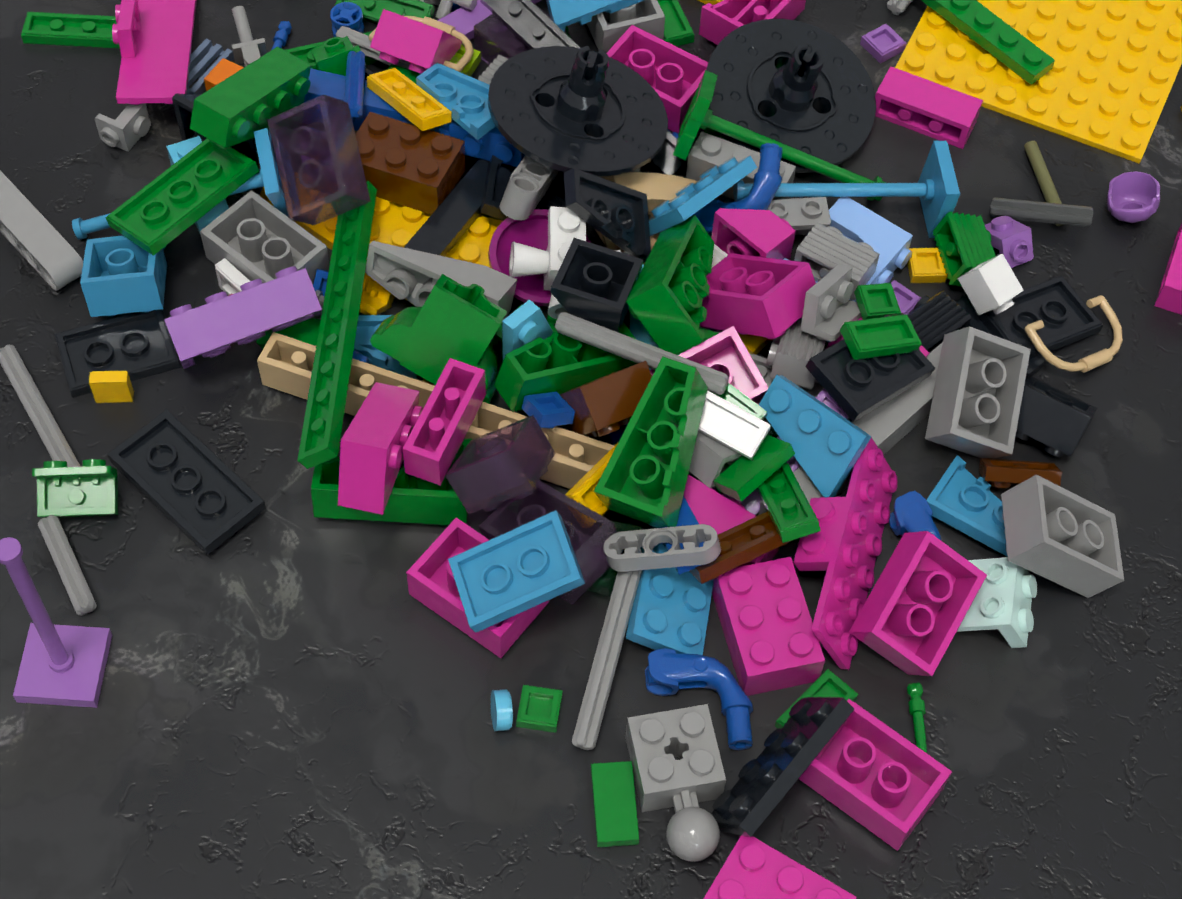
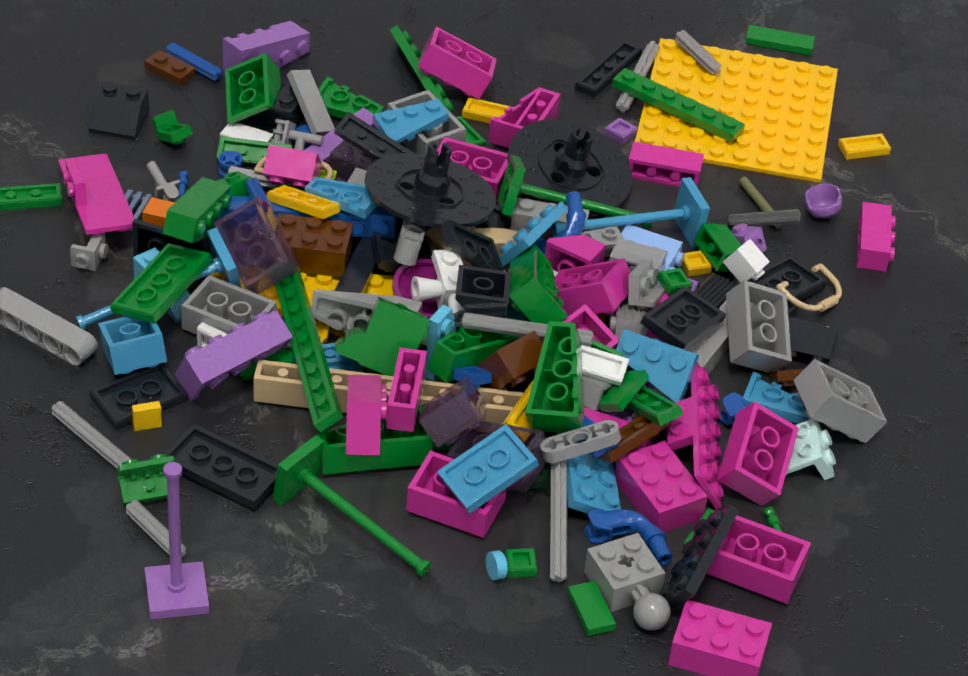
camera: 15 degrees left, 15 degrees down
(275, 515) = (303, 468): none -> green tile
(880, 336) = (685, 298): green tile -> none

